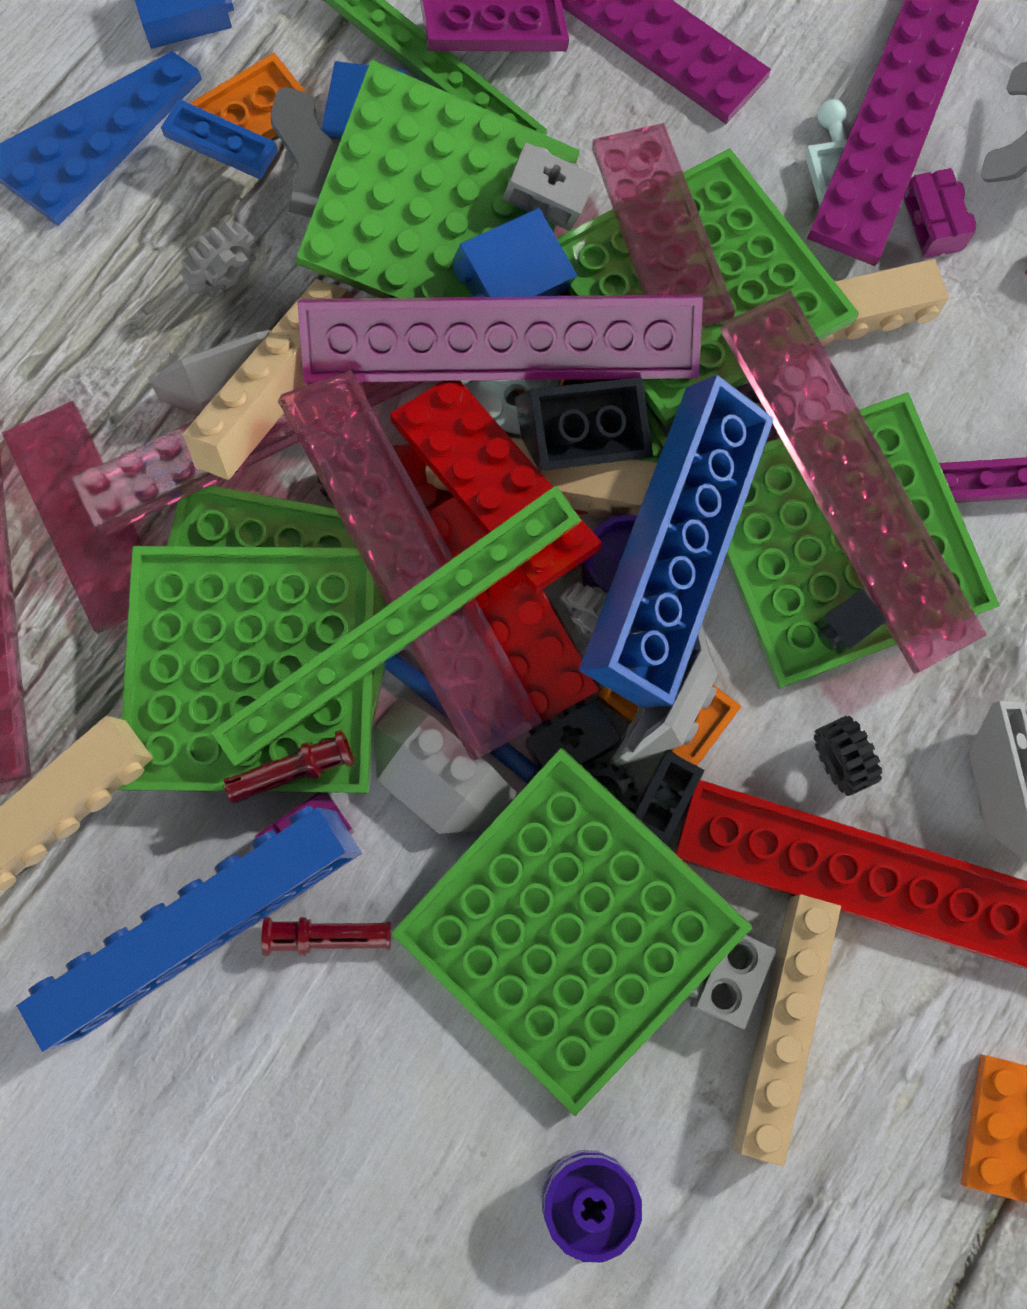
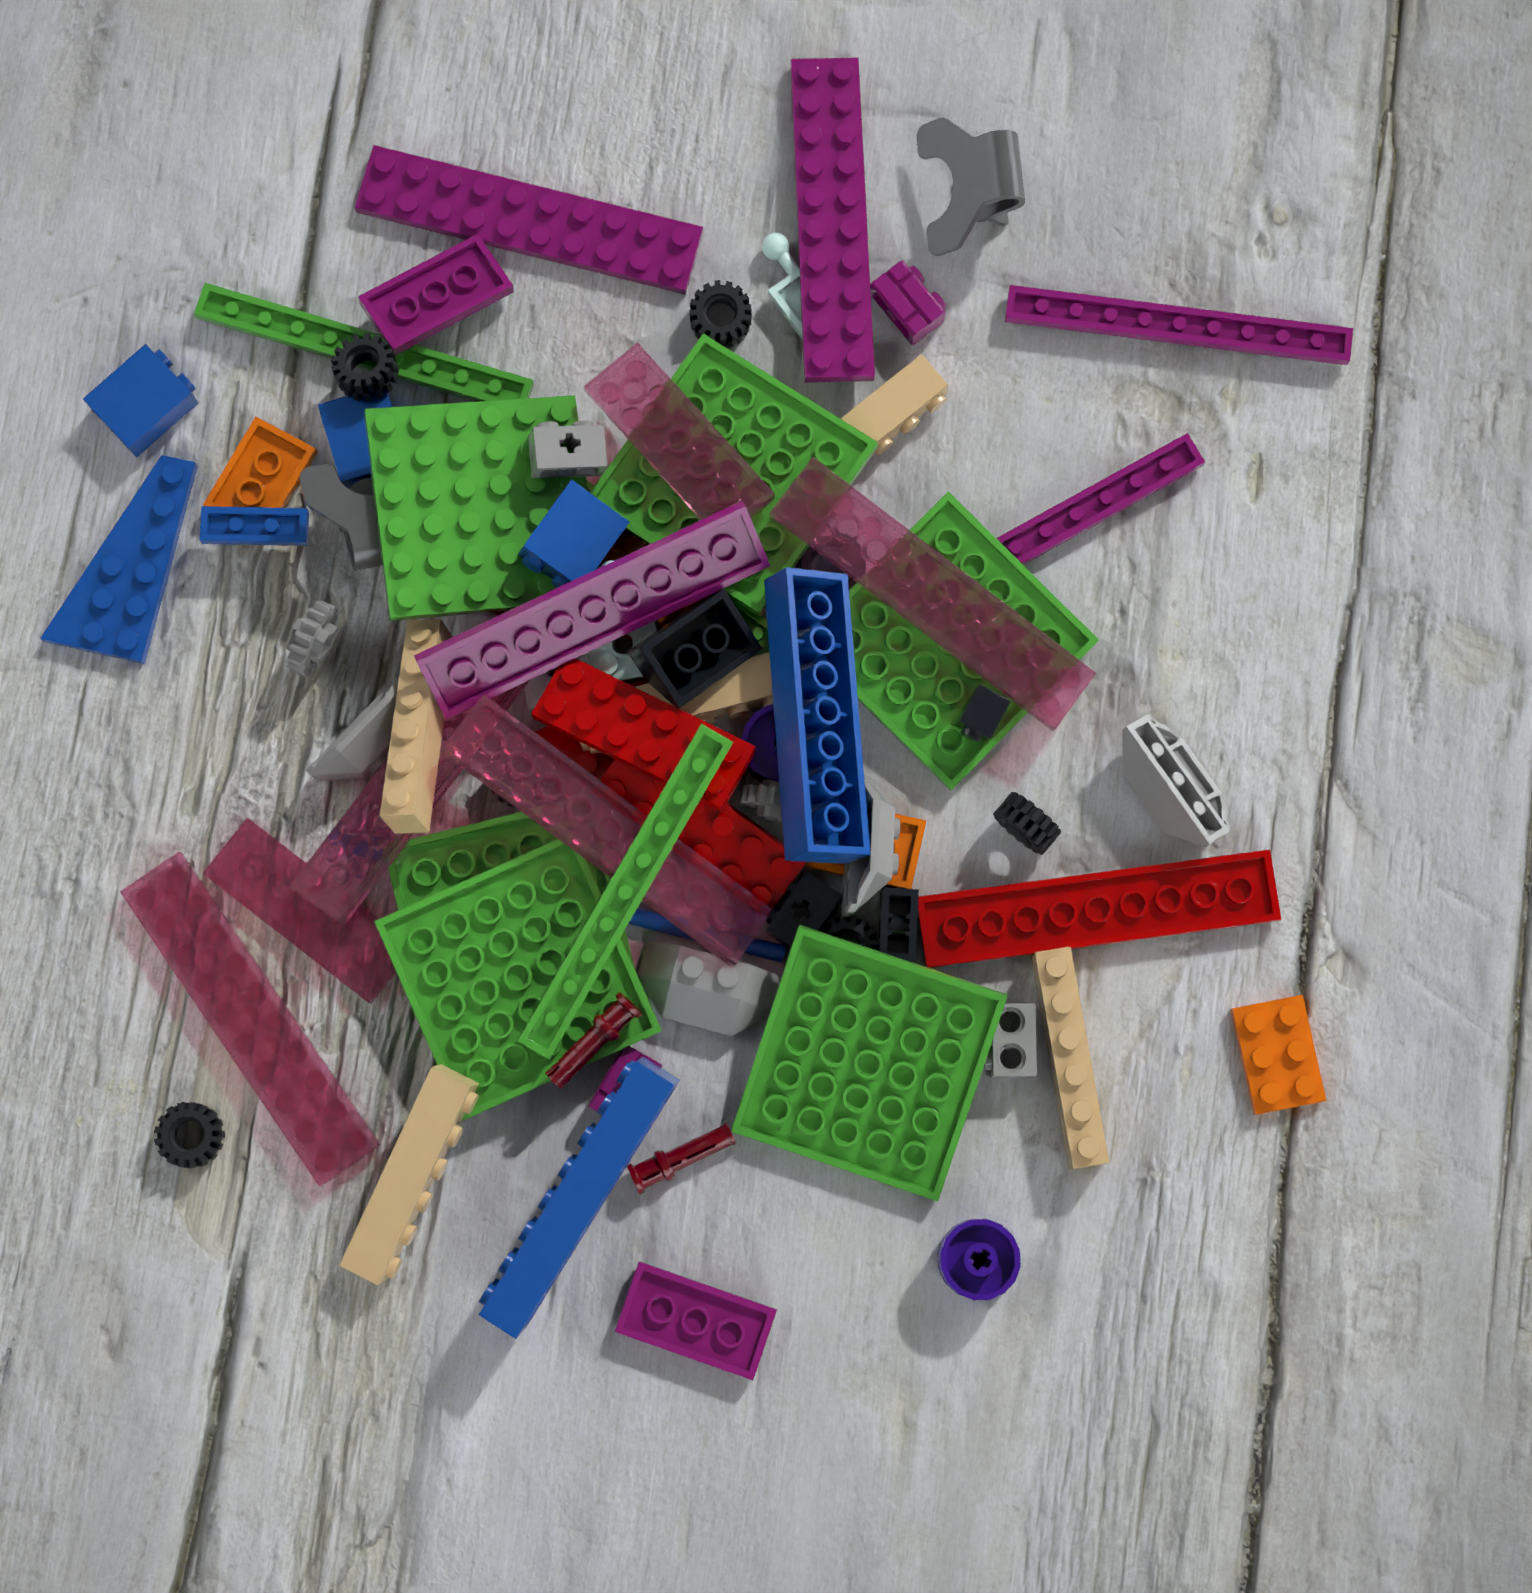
camera: 20 degrees left, 5 degrees up
(255, 1122) = (696, 1320): none -> magenta plate
(395, 42) = (358, 352): none -> black tyre
(757, 133) = (721, 294): none -> black tyre

